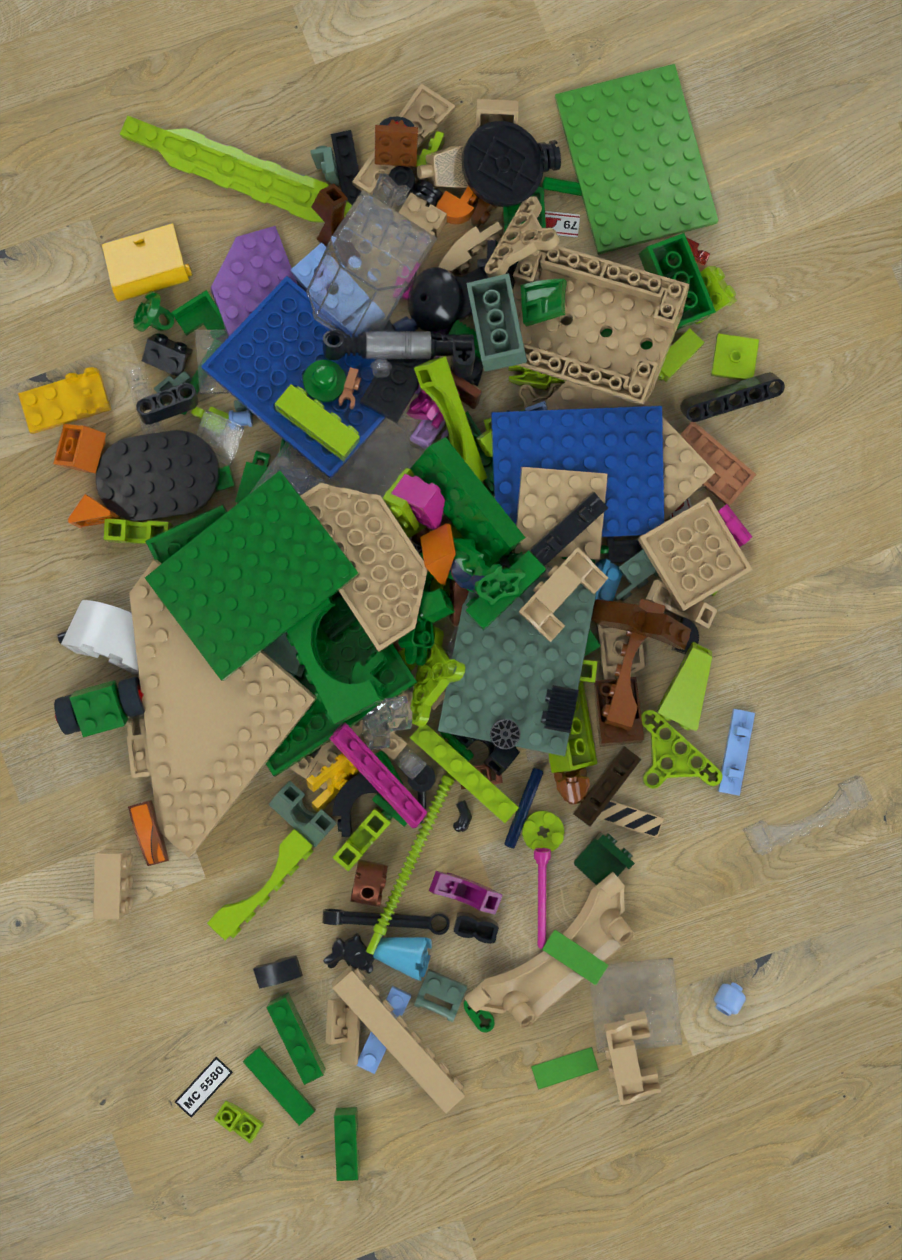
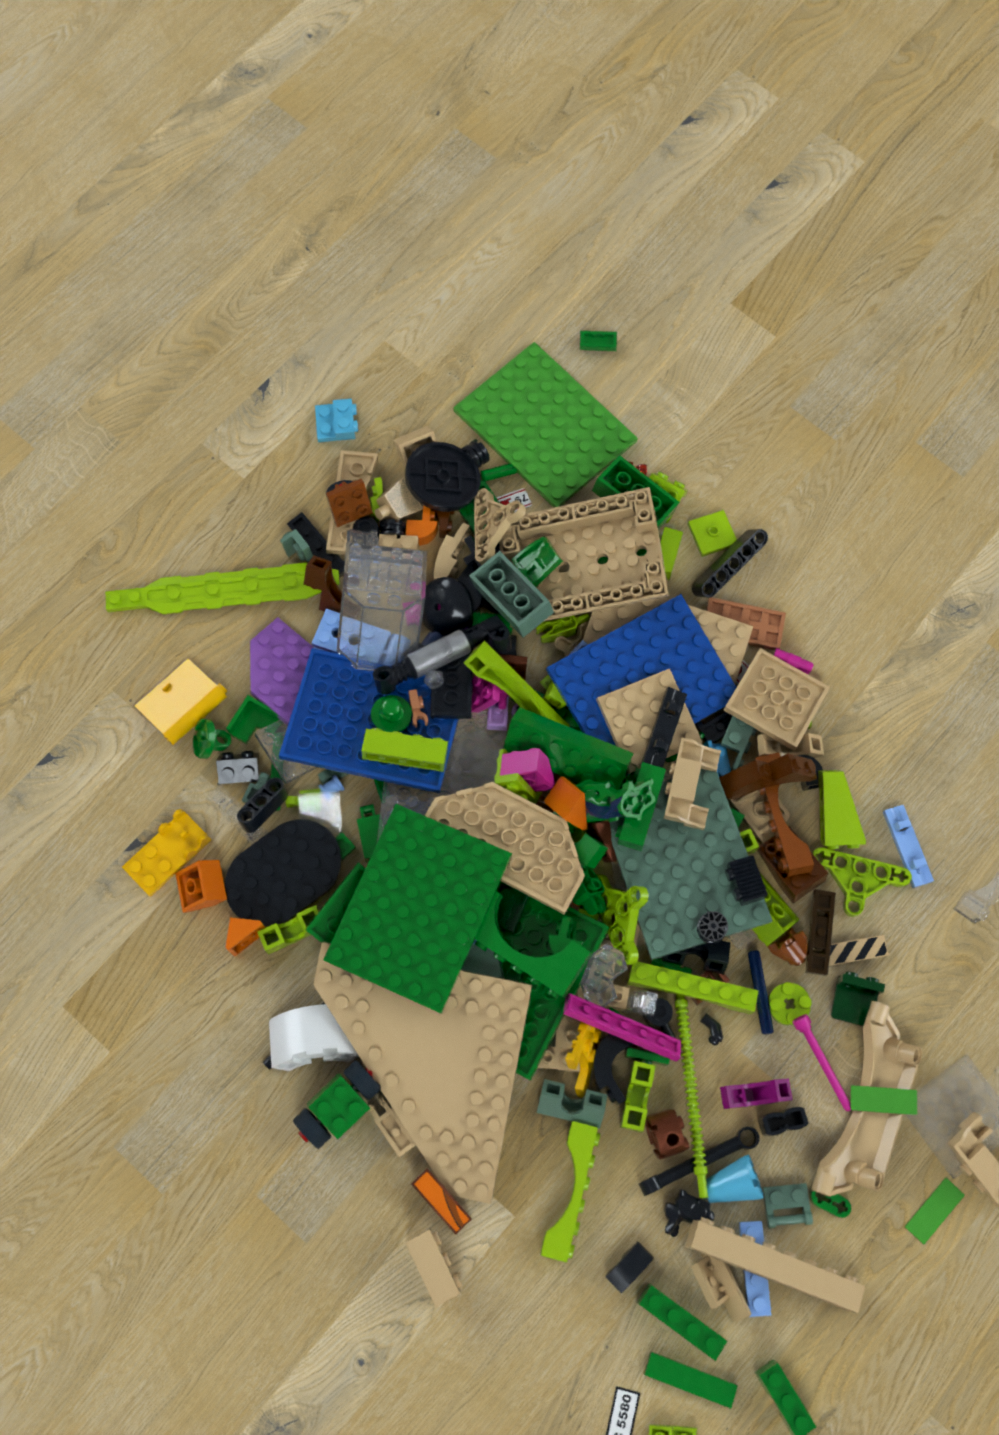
camera: 35 degrees left, 15 degrees down
(434, 49) = (336, 421): none -> medium azure plate
(739, 95) = (598, 340): none -> green plate

